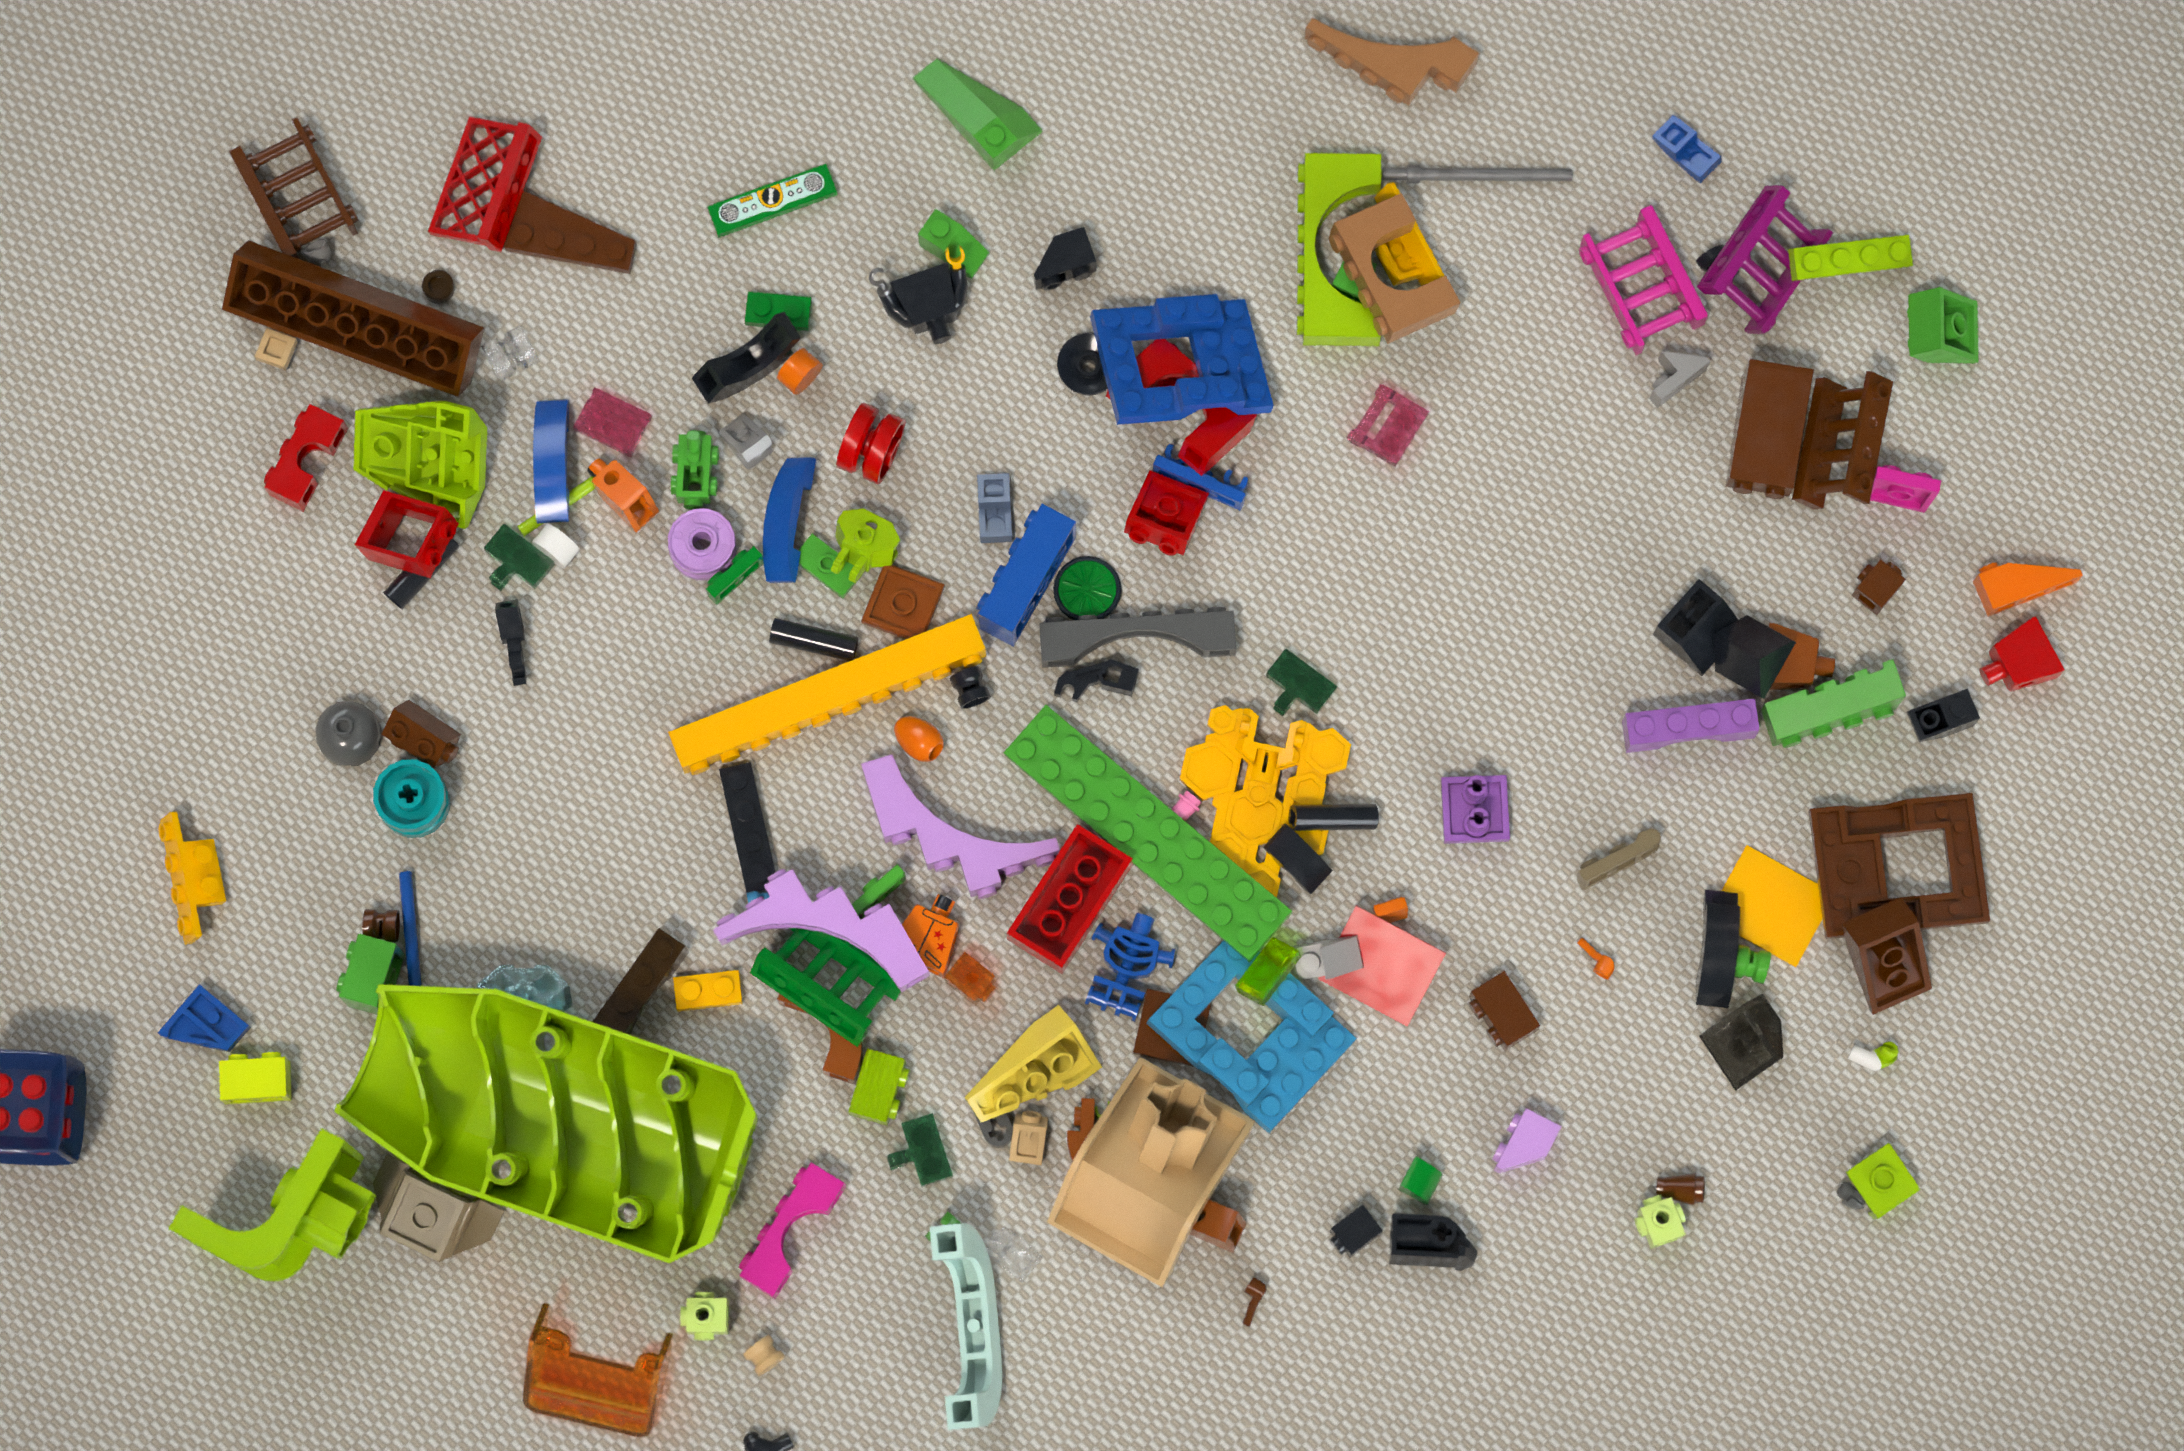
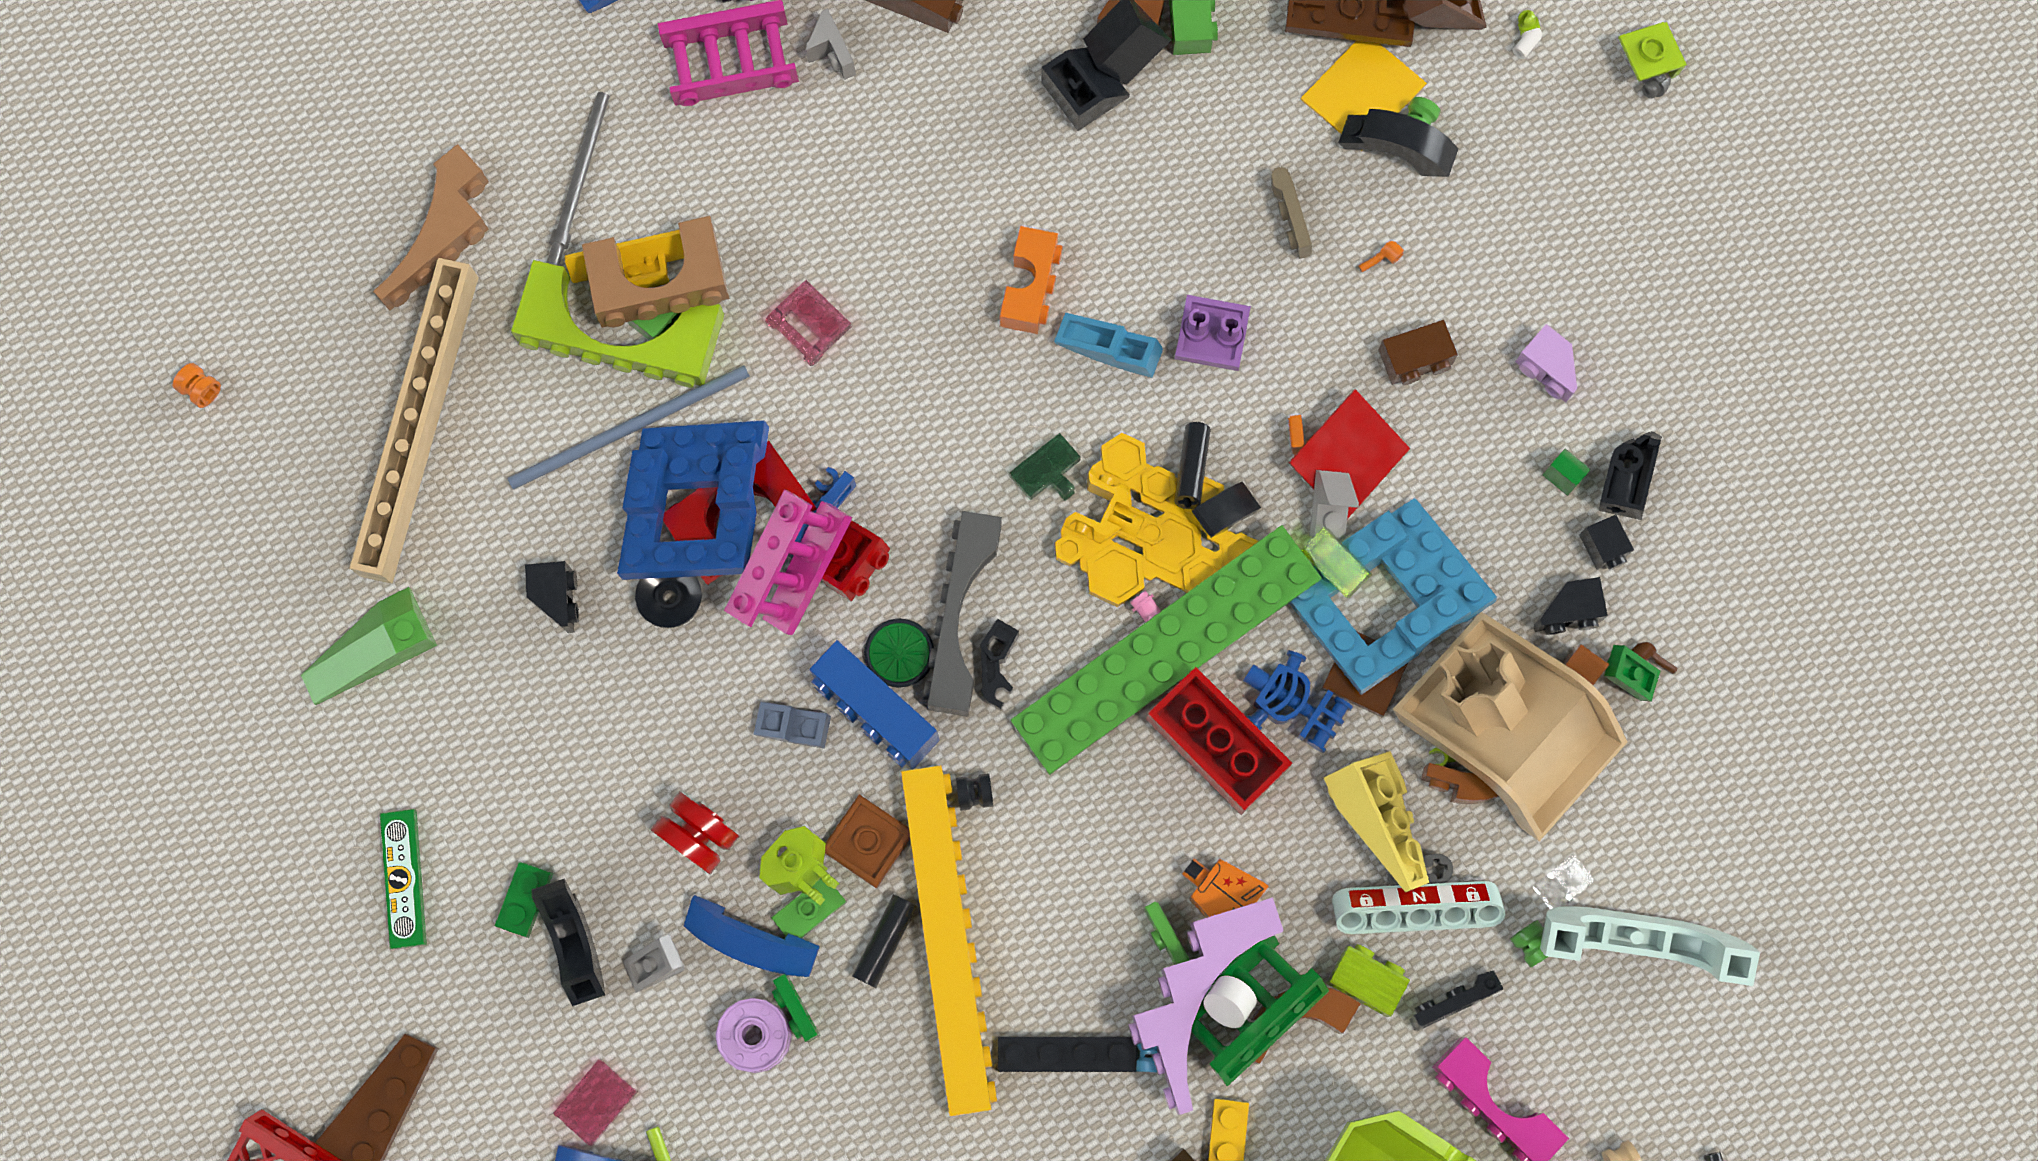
camera: 75 degrees left, 0 degrees up
(623, 493) = (676, 1108): orange torso -> none
(695, 459) = (660, 1022): bright green brick -> none
(799, 371) = (596, 890): orange piece -> none
(824, 953) = (1230, 1001): none -> white piece
(877, 1173) = (1457, 1000): none -> black hinge
(918, 738) = (1015, 856): orange animal -> none
(923, 1150) = (1443, 949): clear green plate -> none
(926, 298) = (554, 741): black torso -> none
(941, 844) = (1158, 823): lavender arch -> none
(944, 232) = (503, 703): bright green slope -> none
(954, 1119) = (1421, 909): none -> light aqua beam
(971, 980) = (1277, 859): clear orange brick -> none
(1028, 1138) = (1450, 839): tan bracket -> none
(1134, 479) = (804, 571): none -> dark pink fence
(1199, 90) = (414, 421): none -> tan brick
(1229, 1276) = (1632, 673): none -> green plate
(1244, 287) = (628, 427): none -> sand blue piece
(1285, 1211) = (1575, 604): none -> black slope
(1437, 713) = (1109, 344): none -> dark azure slope
(1456, 628) = (1025, 307): none -> orange arch
(1657, 1233) = (1652, 258): yellowish green brick -> none
(1682, 1188) = (1621, 231): reddish brown cone -> none
(1699, 722) = (1178, 116): medium lavender arch -> none
(1746, 1041) = (1493, 140): clear smoke slope -> none

